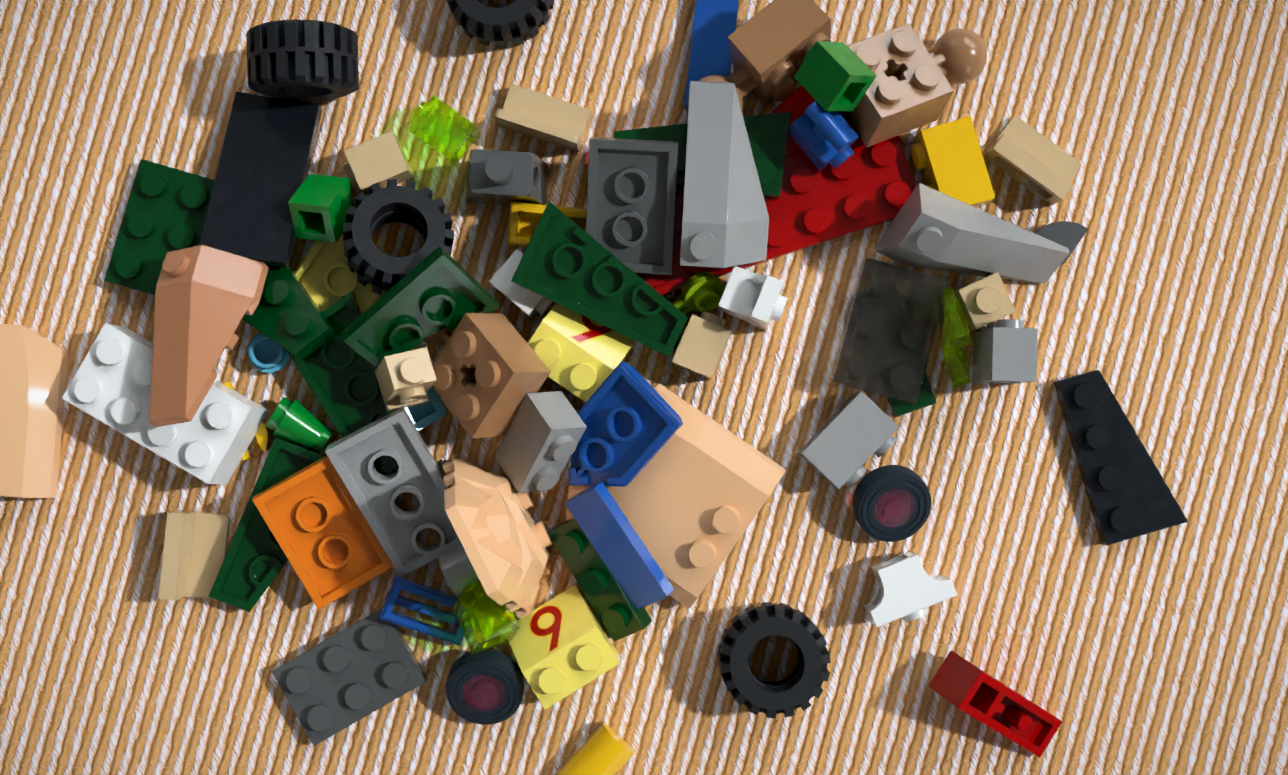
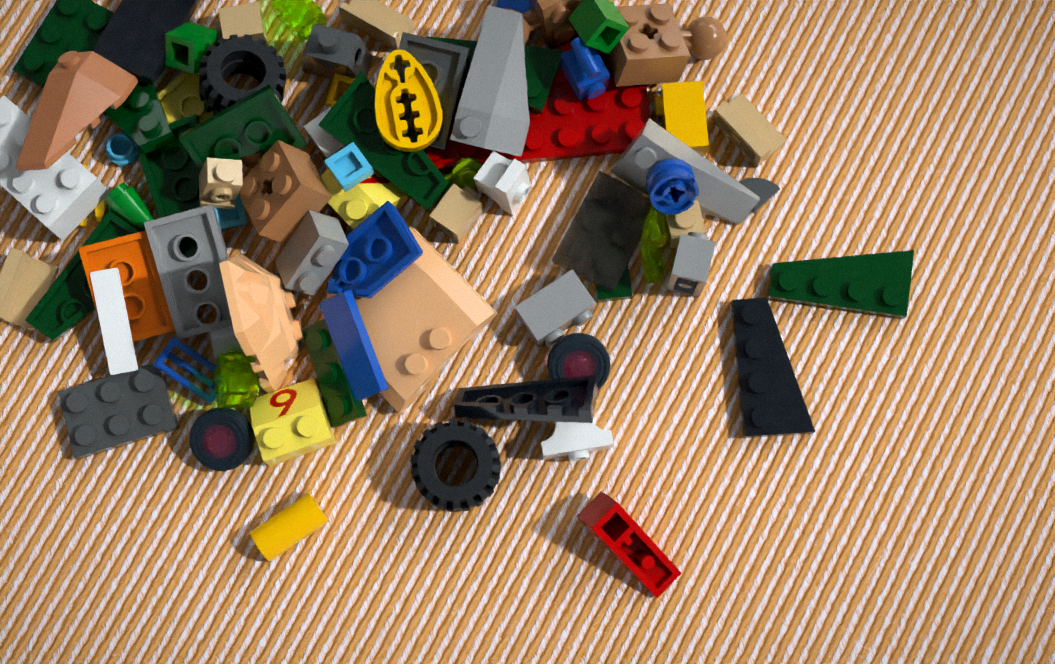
camera: 15 degrees right, 10 degrees down
(318, 575) = (114, 321): none -> white sticker
(563, 329) = (349, 167): none -> medium azure plate
(641, 229) = (388, 111): none -> yellow piece
(860, 563) = (540, 400): none -> black wing
(968, 267) = (670, 174): none -> blue wheel
(1205, 326) = (854, 283): none -> dark green wing

